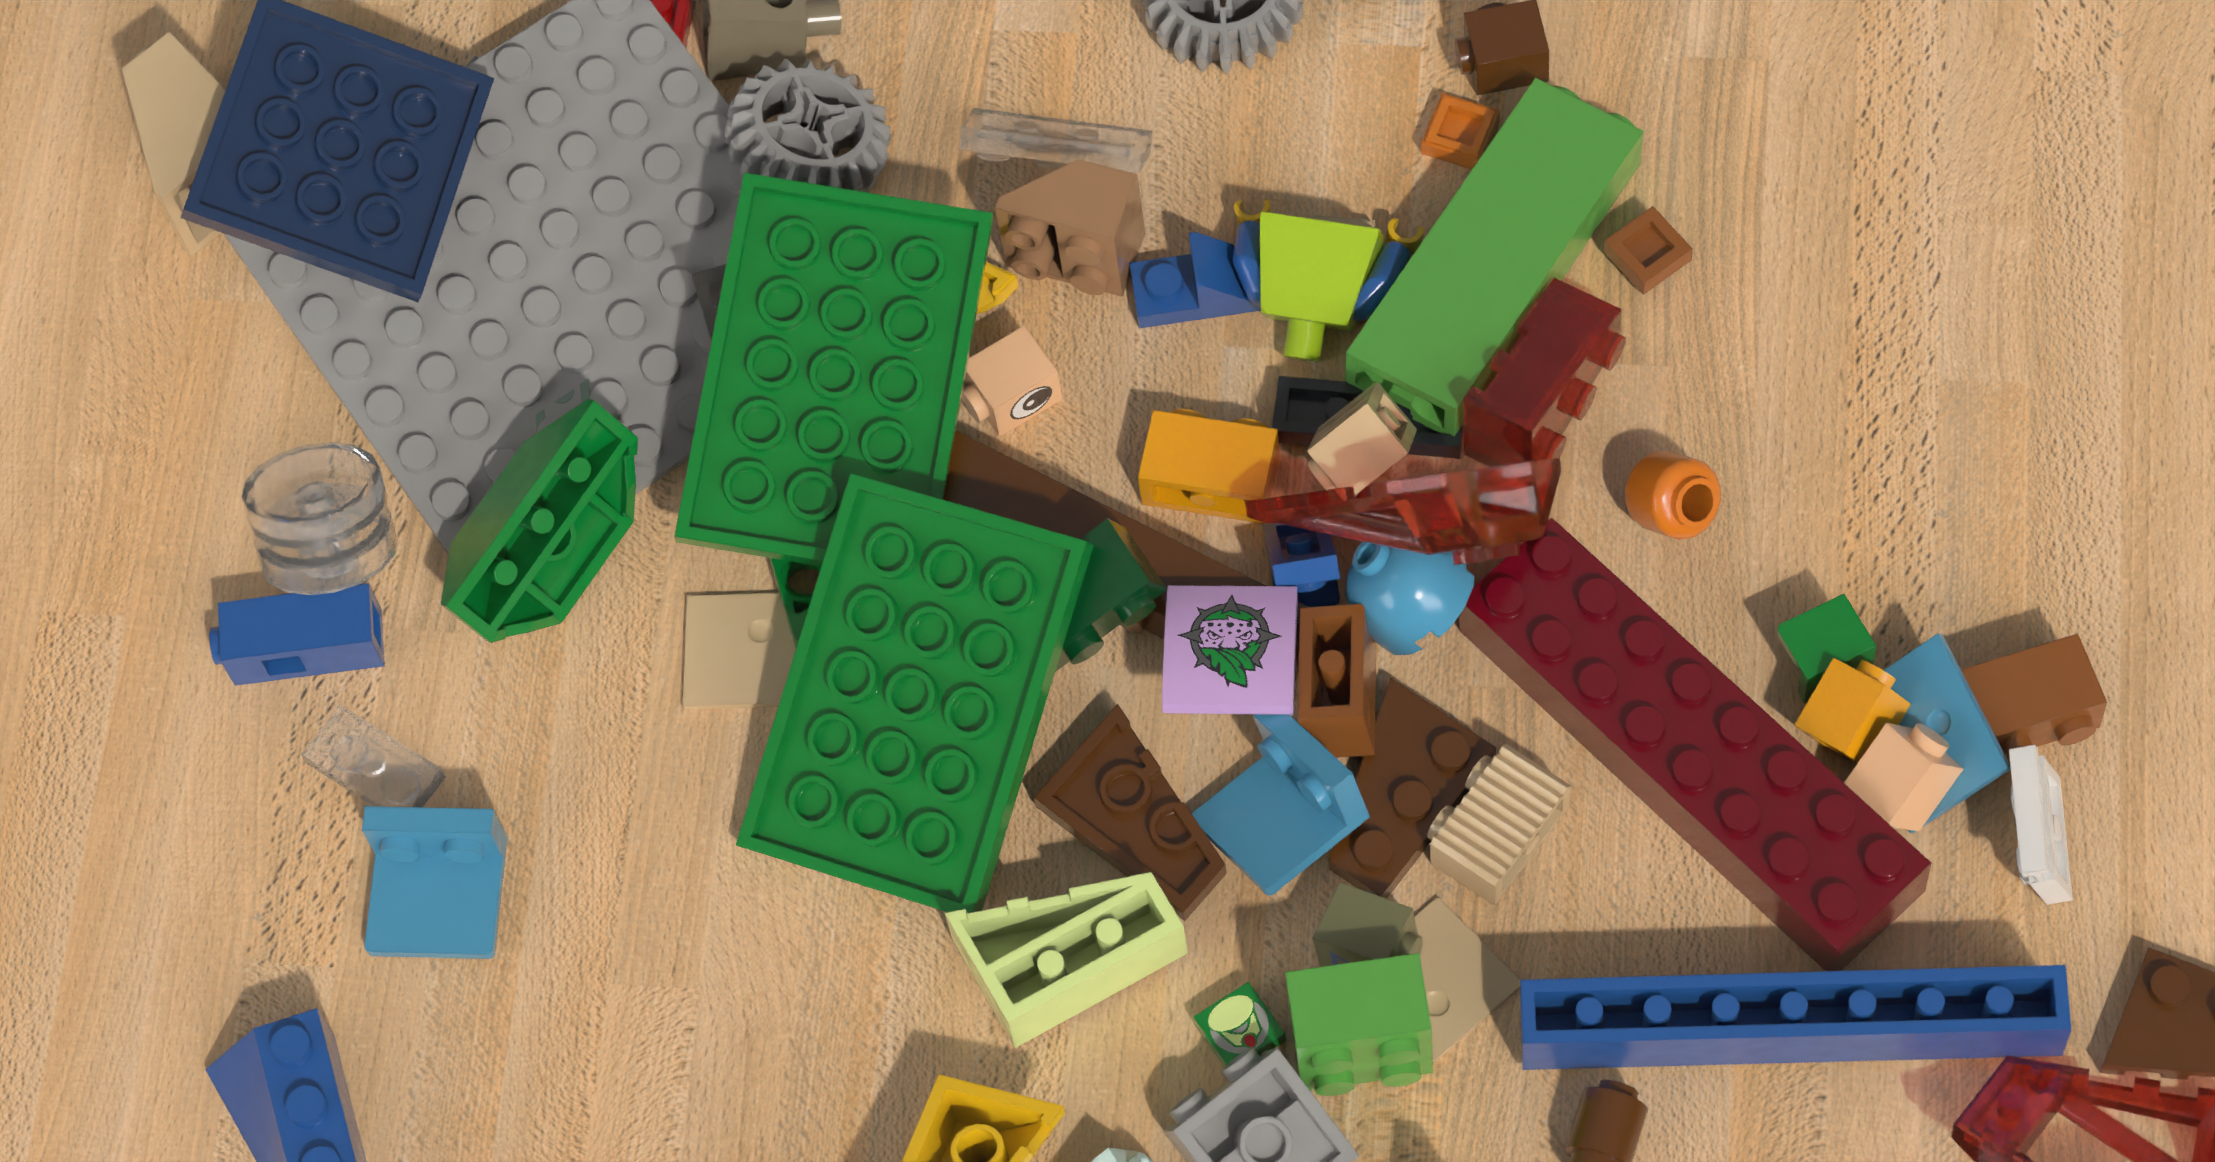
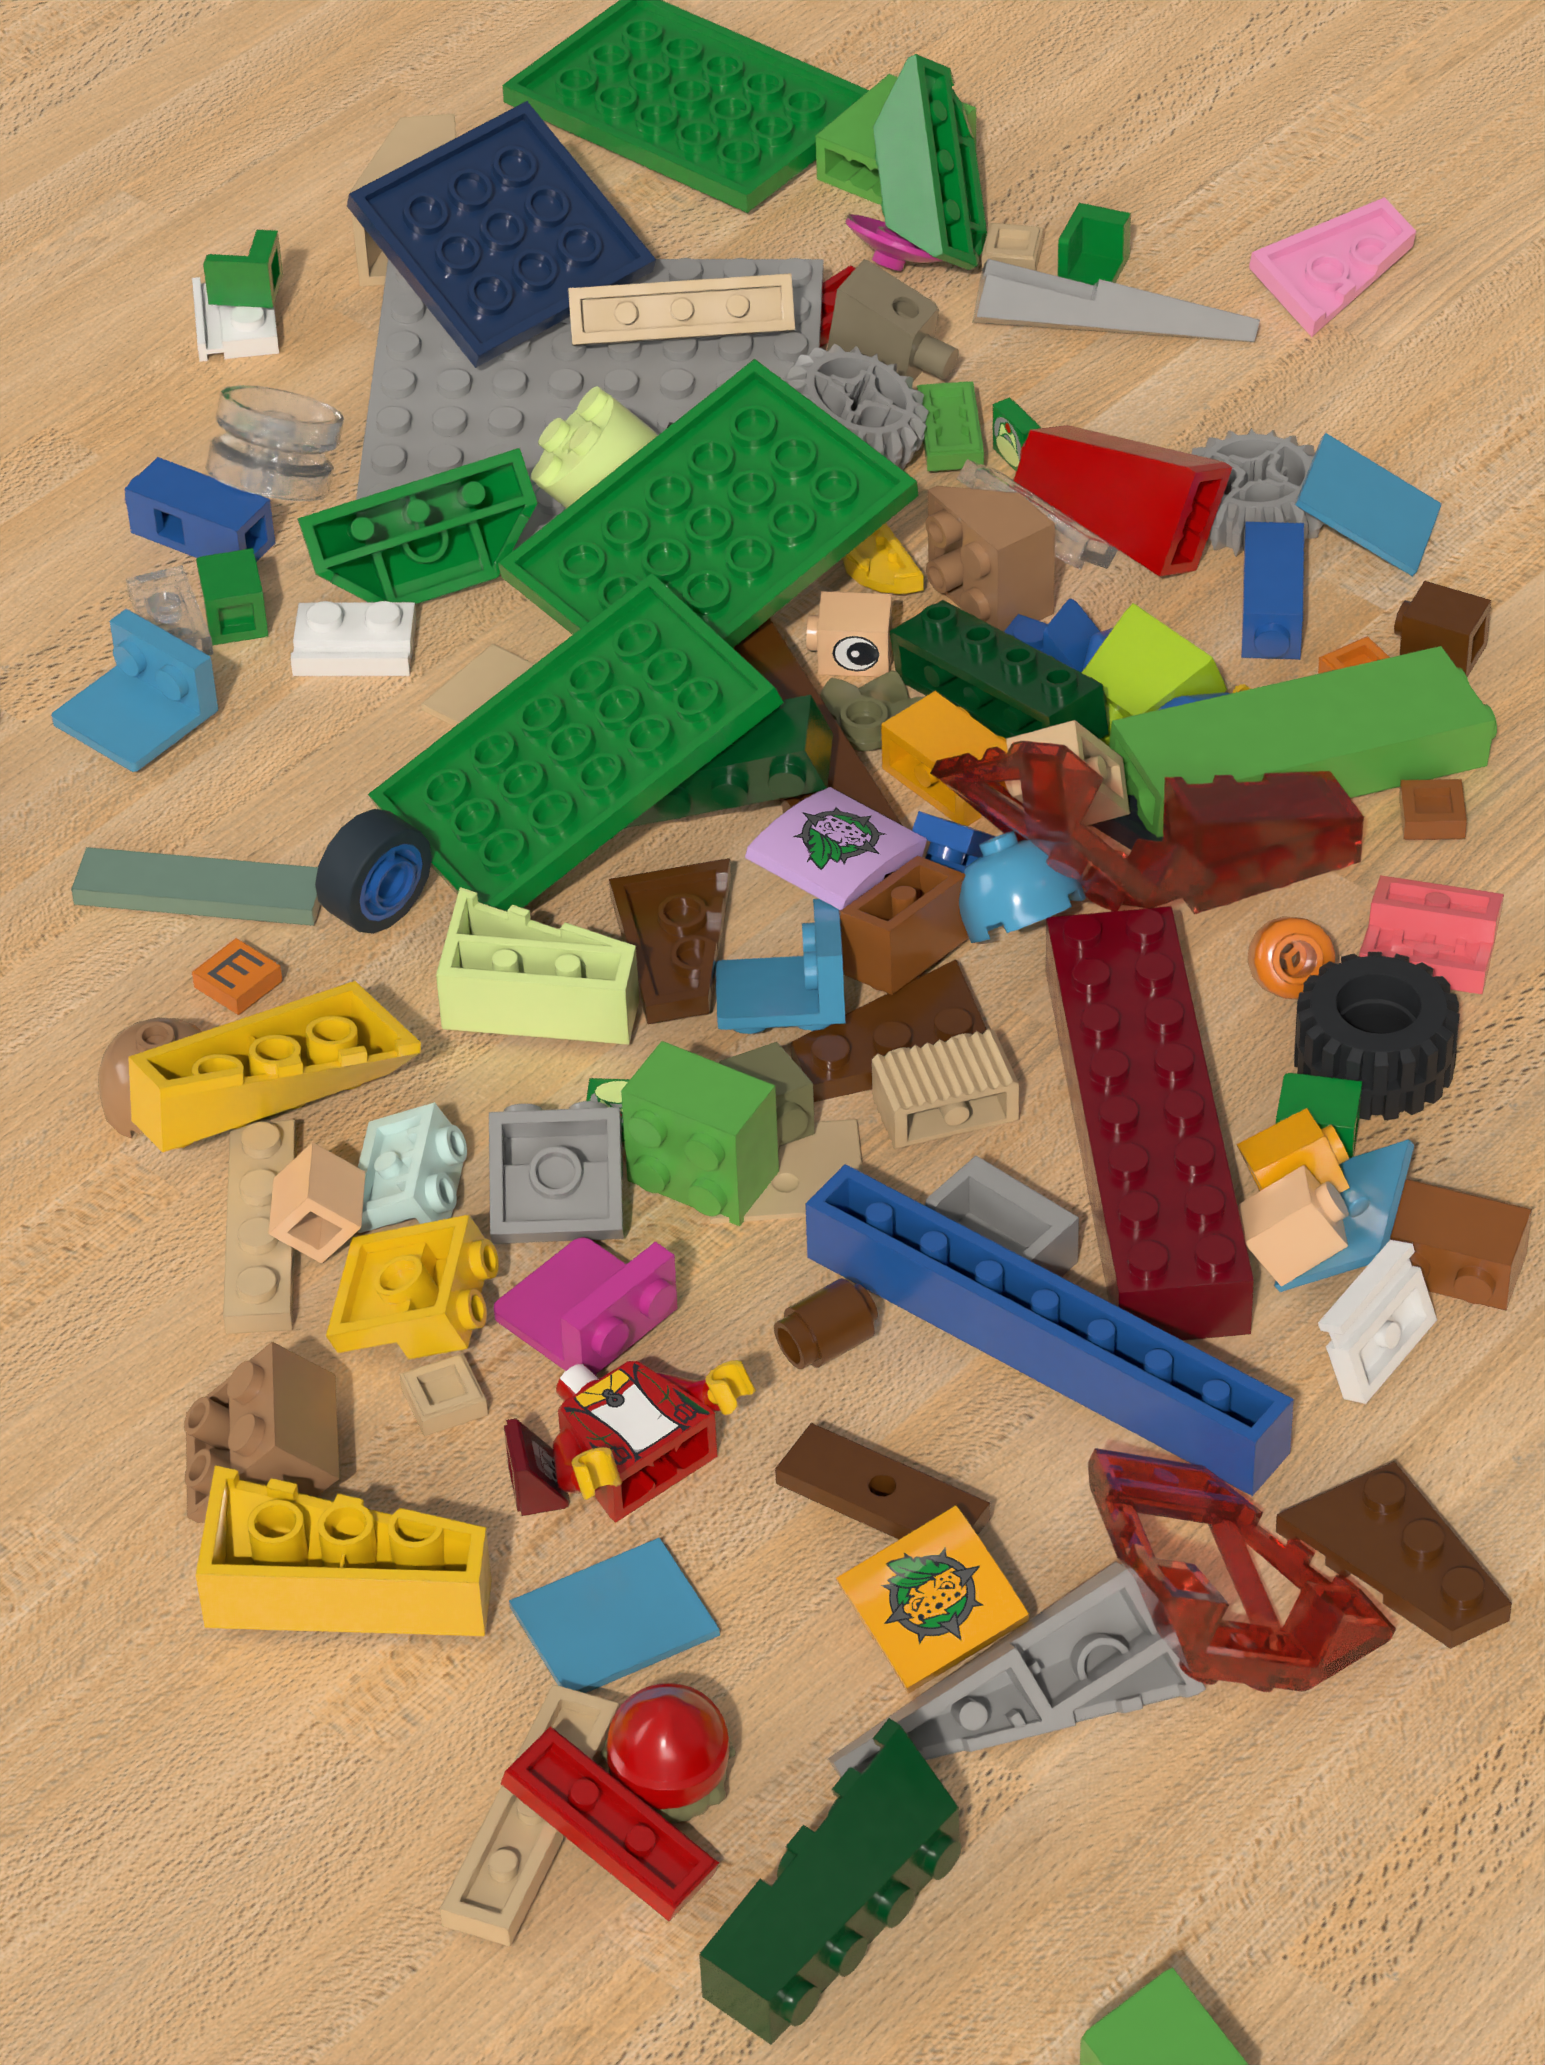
camera: 30 degrees right, 20 degrees down
(106, 335) = (246, 279): none -> green panel
(110, 370) = (232, 329): none -> white plate
(417, 705) = (232, 596): none -> green panel
(559, 675) = (353, 639): none -> white plate
(565, 121) = (681, 309): none -> tan plate
(649, 353) = (588, 446): none -> yellowish green brick
(666, 1043) = (197, 886): none -> sand green tile
(788, 1116) = (237, 976): none -> orange tile
(834, 936) = (373, 871): none -> black wheel
(910, 96) = (951, 426): none -> bright green plate
(965, 63) = (1010, 430): none -> green tile
(1090, 444) = (865, 708): none -> olive plate
(1122, 72) = (1127, 492): none -> red slope
(1192, 359) = (993, 674): none -> dark green brick
(1328, 96) = (1273, 590): none -> blue brick
(1665, 932) = (1009, 1215): none -> light grey panel
(1746, 383) = (1436, 925): none -> coral slope
(1813, 484) = (1379, 1026): none -> black tyre

